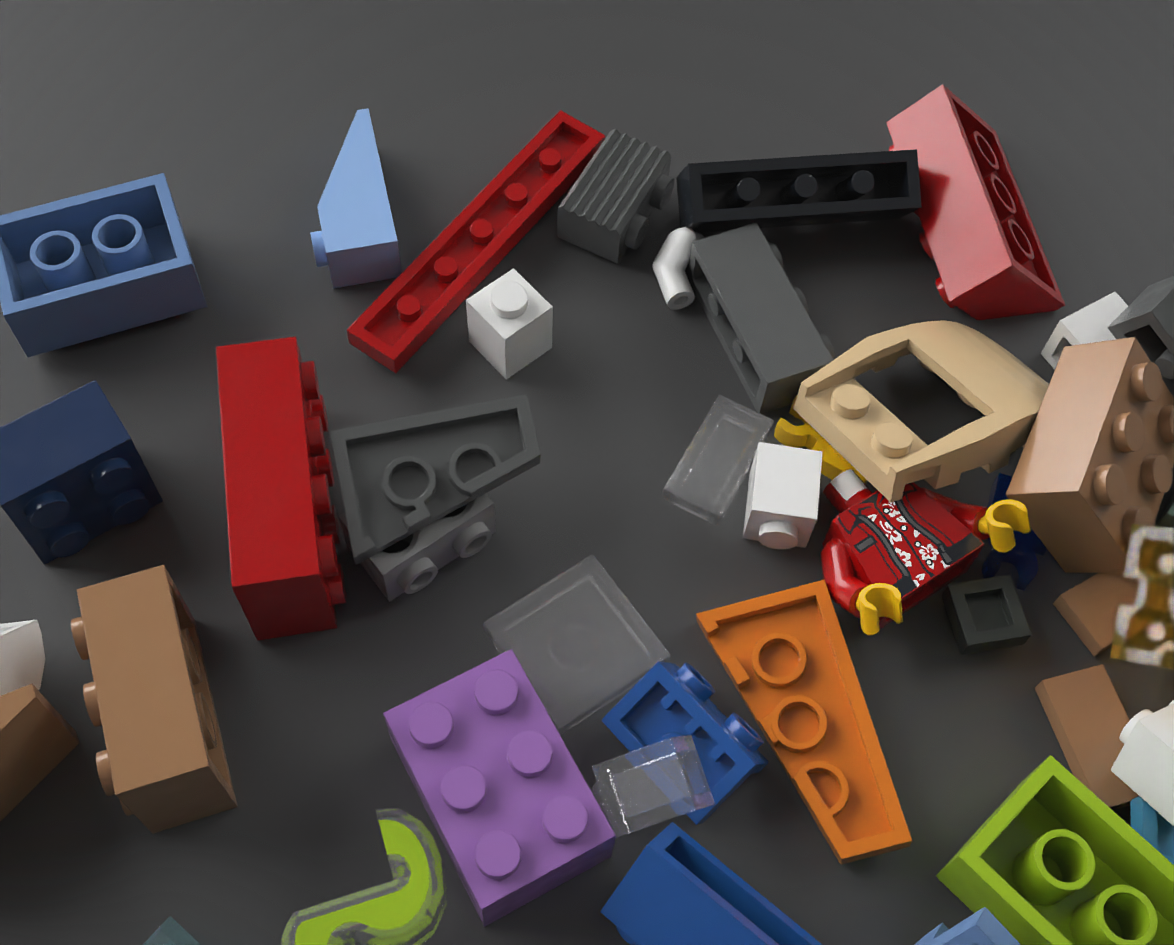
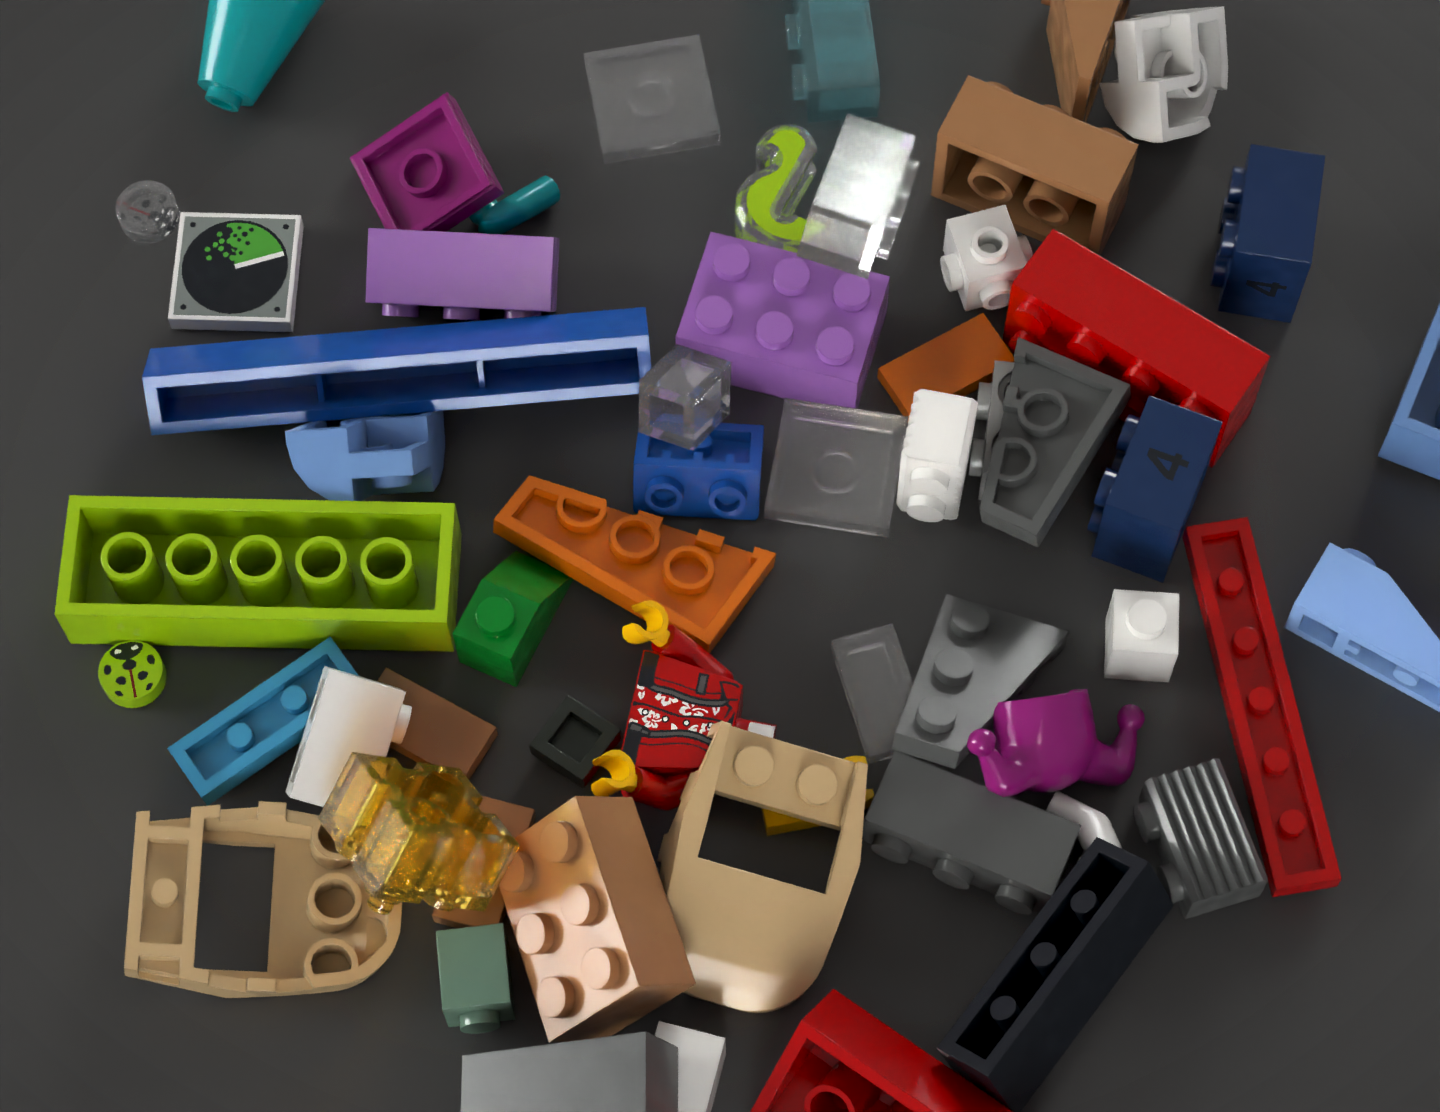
camera: 140 degrees right, 5 degrees up
(282, 674) = (983, 257): none -> white brick
(321, 813) = (860, 197): none -> clear brick
(389, 366) = (1152, 487): none -> dark blue brick
(405, 637) = (946, 364): none -> orange tile
(512, 541) = (935, 455): none -> white brick
(653, 305) = (1053, 744): none -> magenta piece
(657, 397) = (968, 668): none -> dark grey wing
(782, 496) = (801, 691): white brick -> none
(962, 751) = (509, 616): none -> green slope

